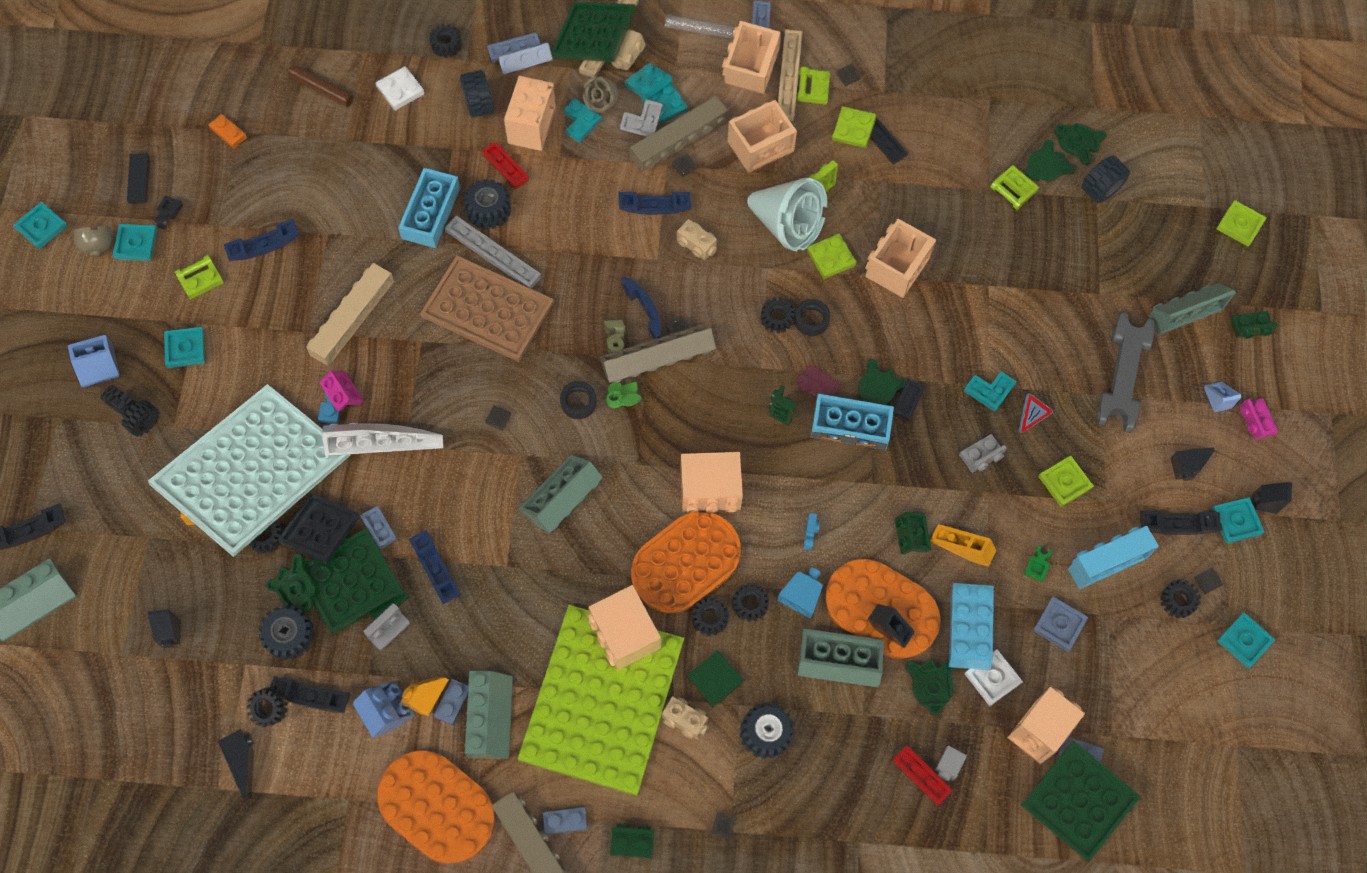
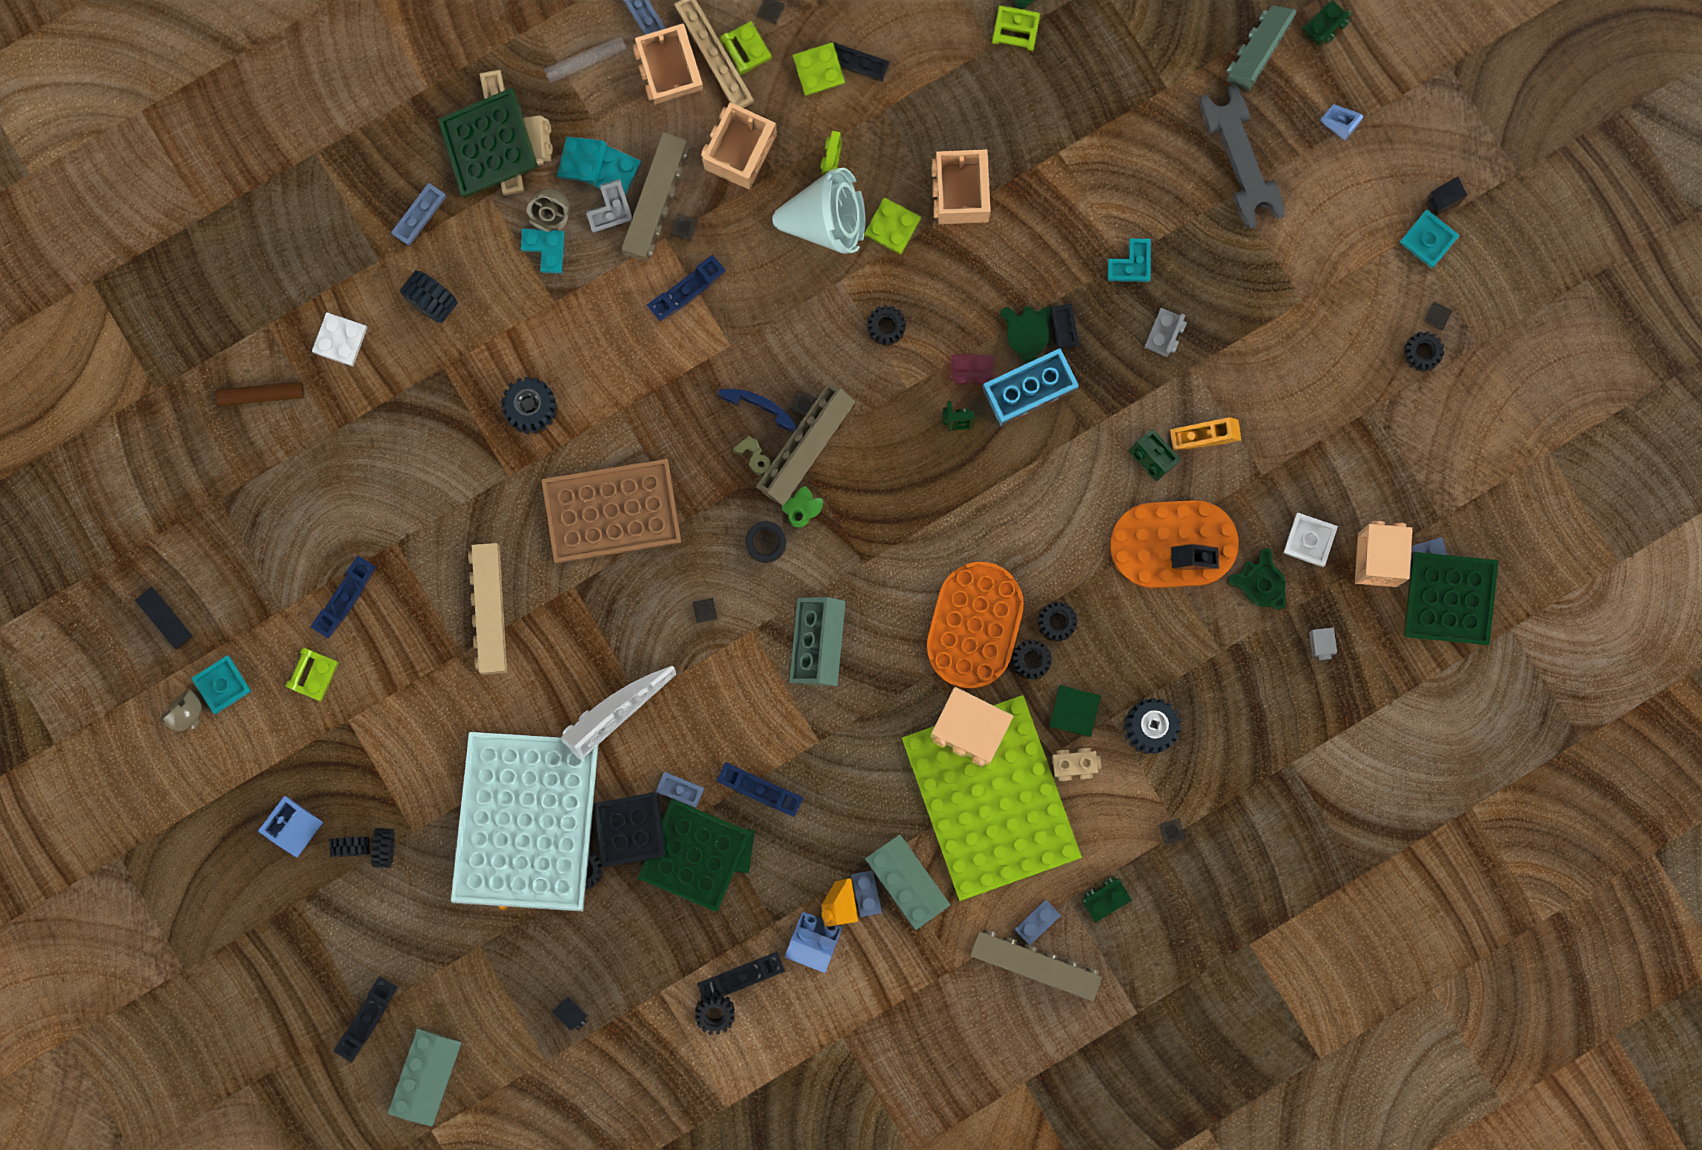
camera: 35 degrees left, 15 degrees up
(40, 225) = (114, 733): teal plate -> none
(167, 209) = (223, 628): black plate -> none
(184, 347) = (360, 752): teal plate -> none
(227, 131) = (208, 506): orange plate -> none
(240, 759) = (724, 1070): black slope -> none
(286, 632) = (678, 940): black wheel -> none
(295, 585) = (650, 895): dark green tile -> none
(328, 413) = (545, 714): dark azure plate -> none
(340, 390) = (542, 689): dark pink bracket -> none
(386, 627) = (761, 872): light grey bracket -> none
(429, 207) = (477, 449): medium azure brick -> none
(436, 807) = (921, 989): orange plate -> none
(445, 32) = (352, 264): black tyre -> none
(493, 252) = (572, 451): light grey plate -> none
(505, 165) = (511, 350): red plate -> none
(525, 58) = (439, 219): plate -> none
(530, 113) = (498, 281): light nougat container -> none
(697, 240) = (756, 300): tan brick -> none
(711, 482) = (946, 537): light nougat container -> none
(802, 592) = (1097, 580): dark azure torso -> none
(812, 304) = (920, 321): black tyre -> none
(812, 527) = (1063, 513): dark azure plate -> none
(841, 658) = (1170, 616): sand green slope -> none
(922, 775) = (1306, 669): red plate -> none
(971, 626) = (1263, 508): medium azure brick -> none
(1033, 412) = (1185, 259): piece -> none
(1037, 566) = (1282, 409): green plate -> none
(1060, 624) = (1336, 449): sand blue plate -> none
(1066, 481) = (1256, 307): lime plate -> none
(1112, 557) = (1345, 354): medium azure brick -> none
(1181, 523) = (1381, 277): black slope -> none
(1189, 463) = (1355, 211): black slope -> none
(1246, 640) = (1502, 351): teal plate -> none
(1258, 418) = (1388, 120): dark pink bracket -> none

